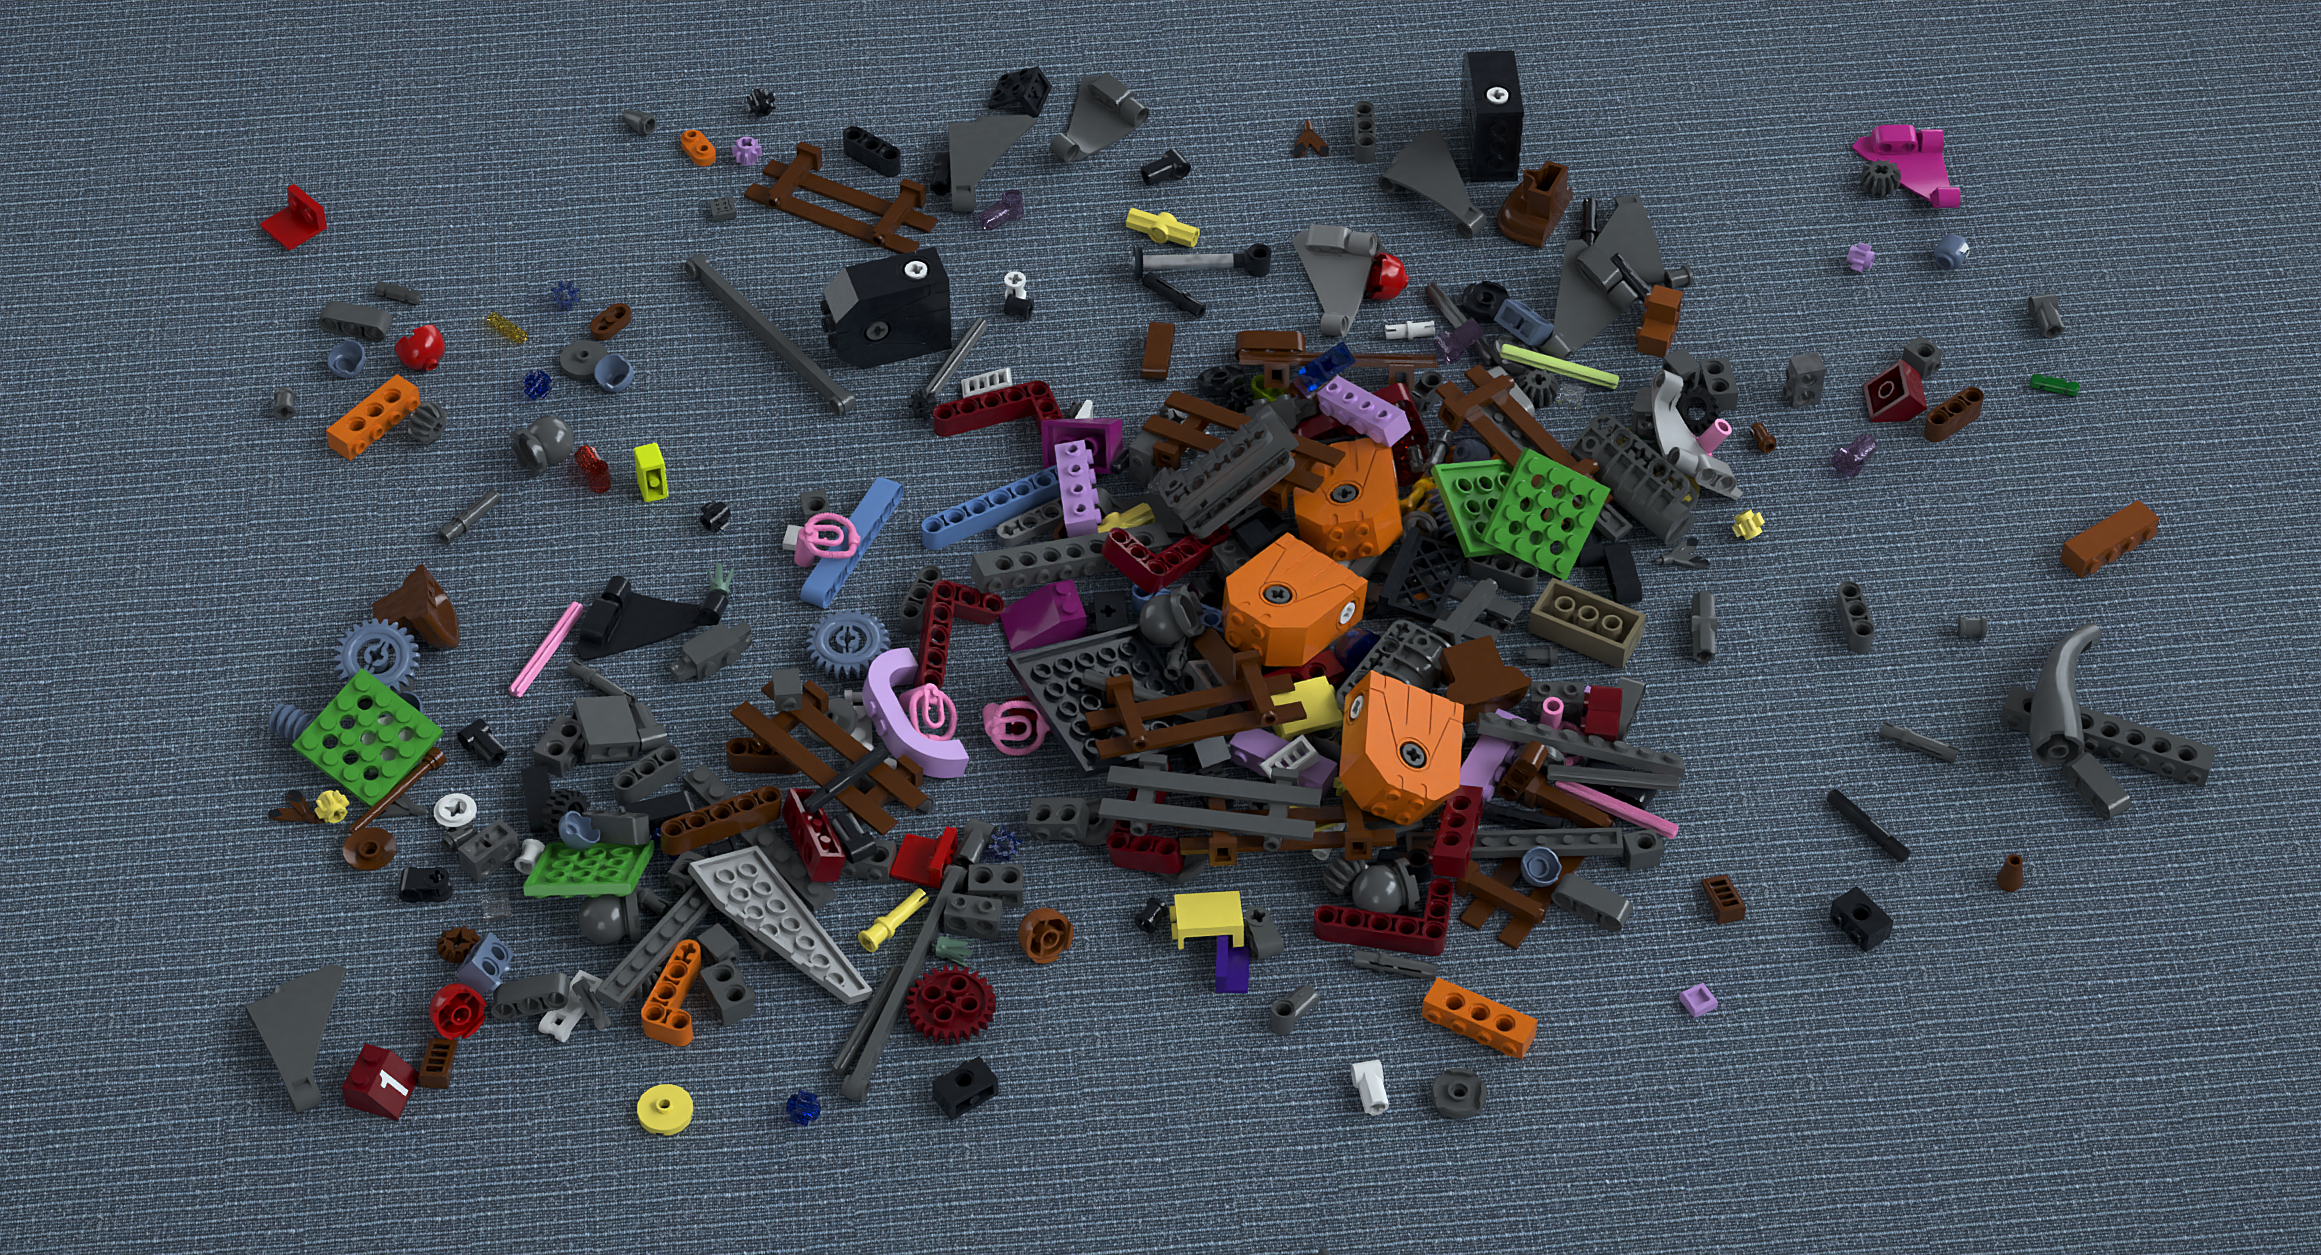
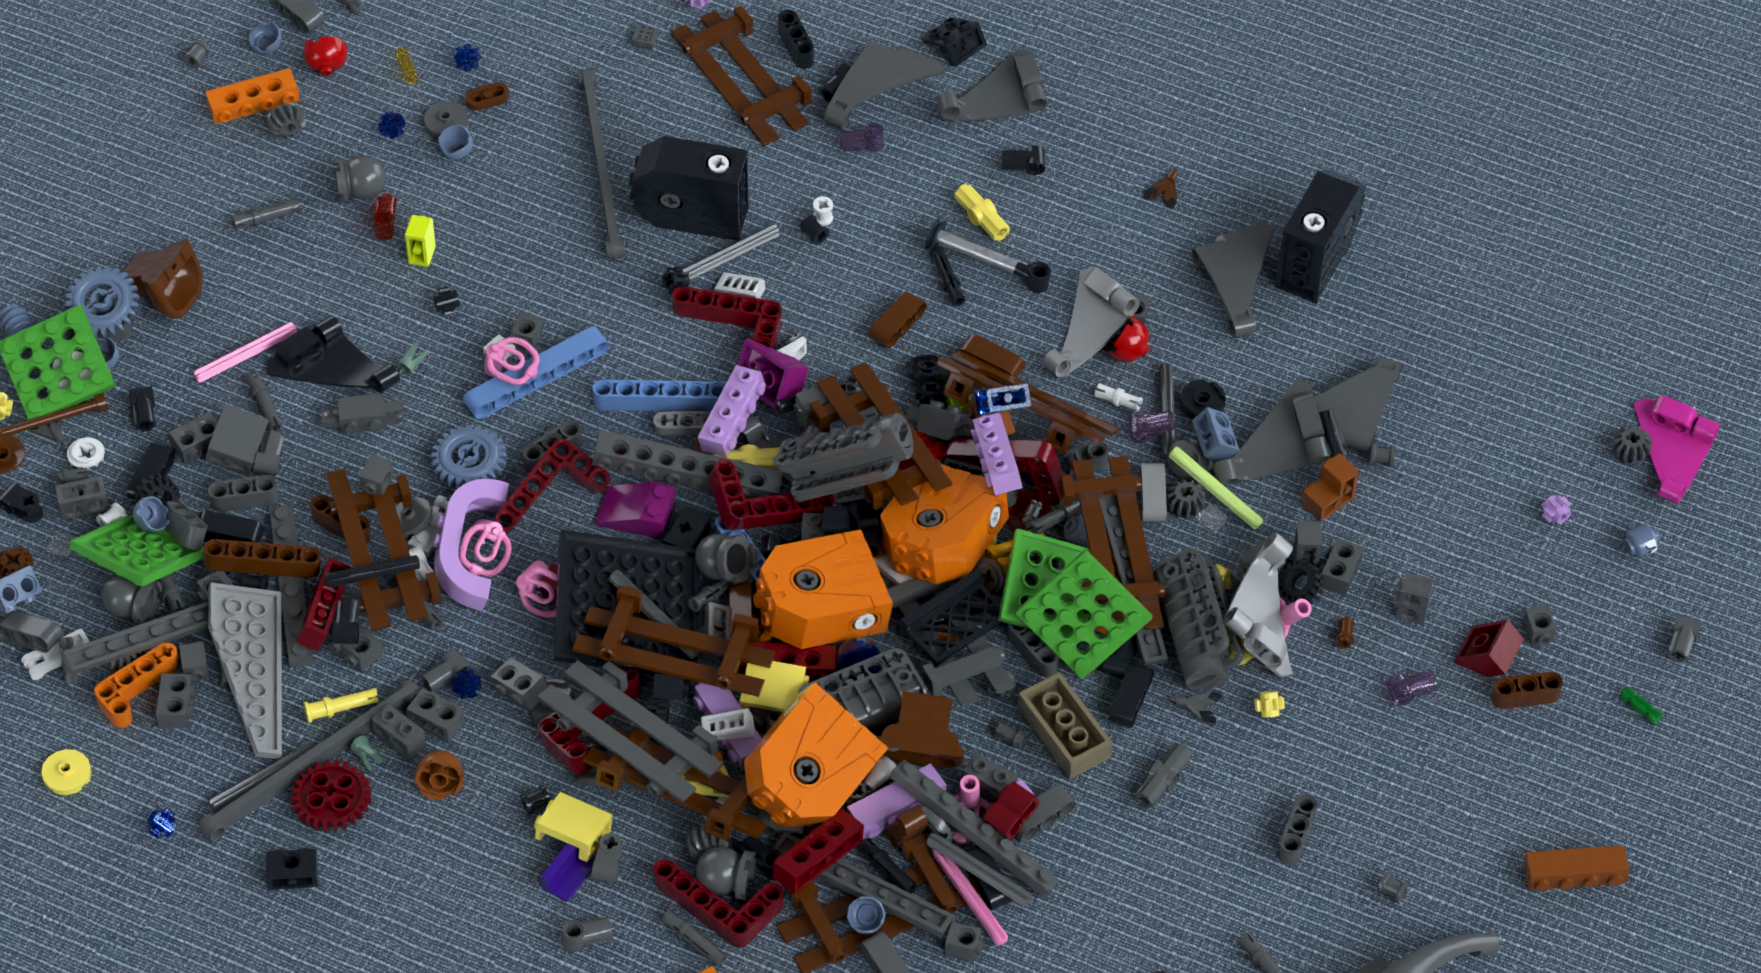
camera: 30 degrees right, 5 degrees up
(925, 859) = (399, 664): red bracket -> none
(1364, 132) = (1213, 201): dark grey beam -> none
(1535, 205) = (1307, 335): reddish brown piece -> none
(1589, 232) = (1345, 369): black pin -> none

